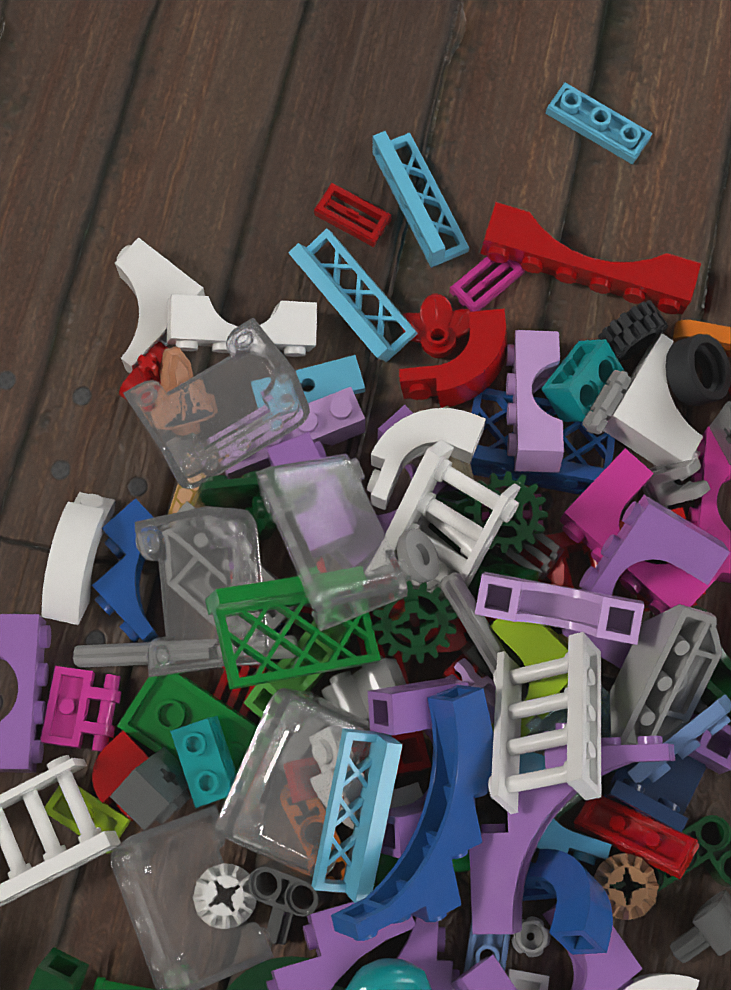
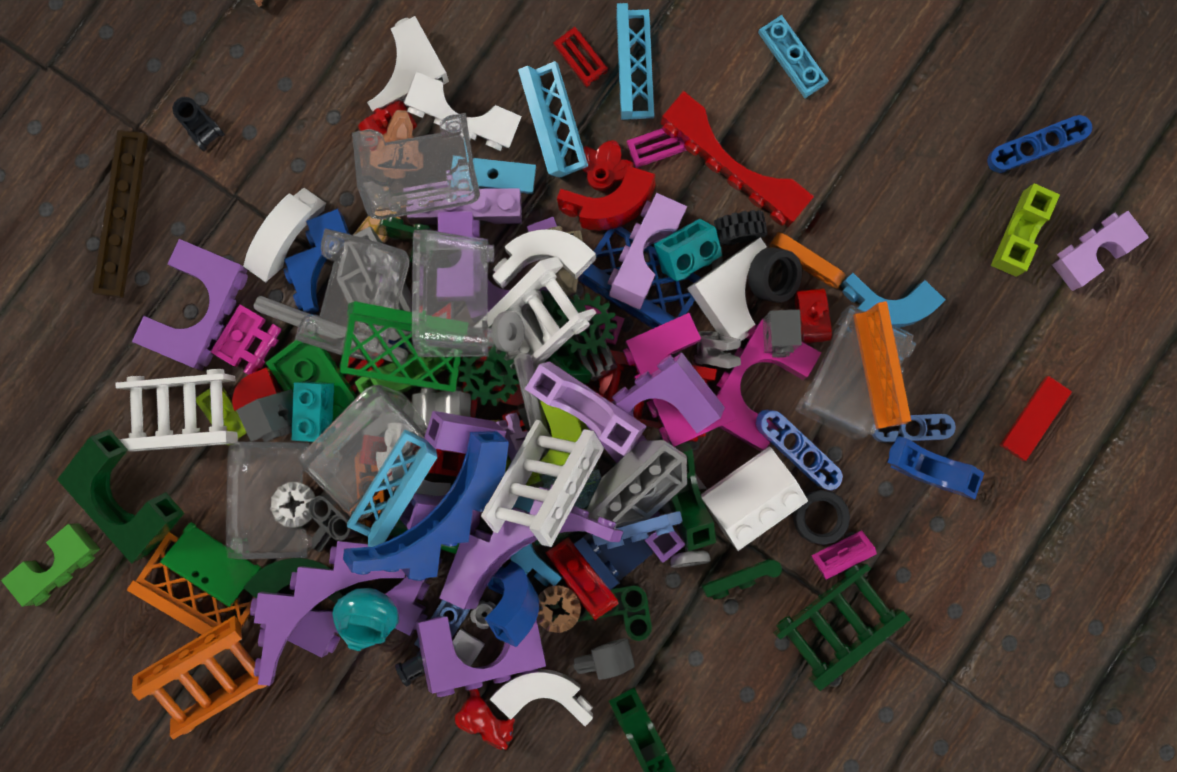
camera: 25 degrees right, 10 degrees up
(607, 402) = (696, 272): light grey axle -> none

